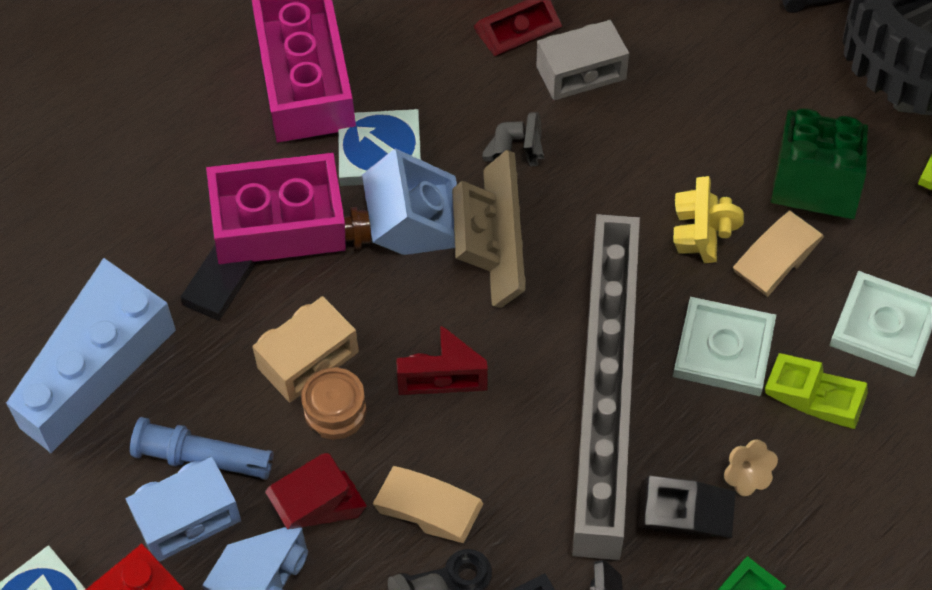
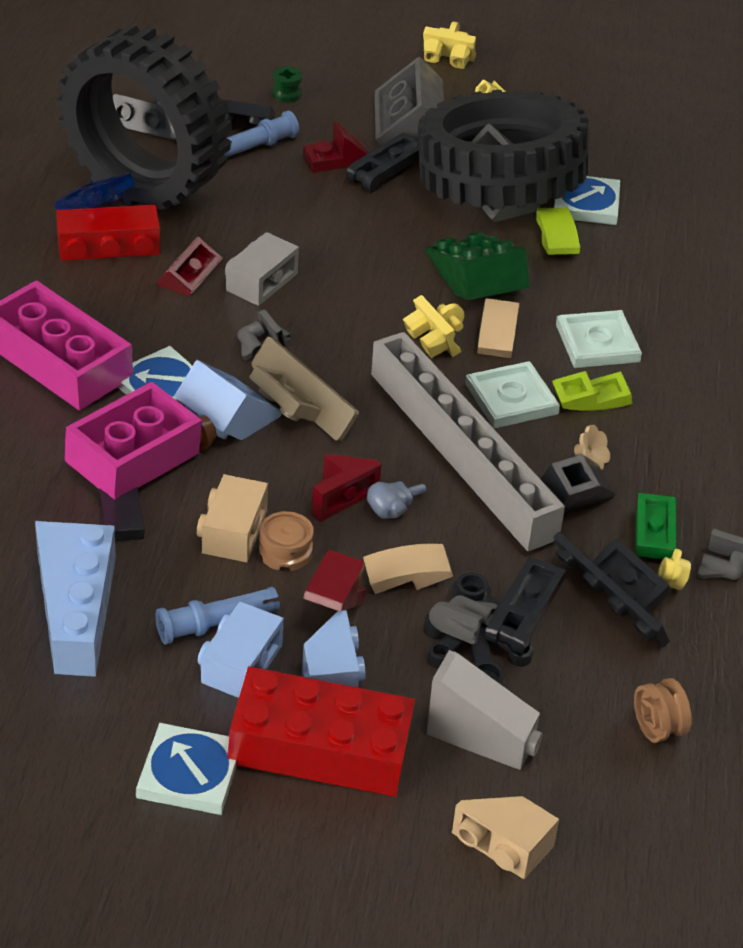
camera: 40 degrees left, 15 degrees down
(481, 410) = (392, 498): none -> sand blue piece

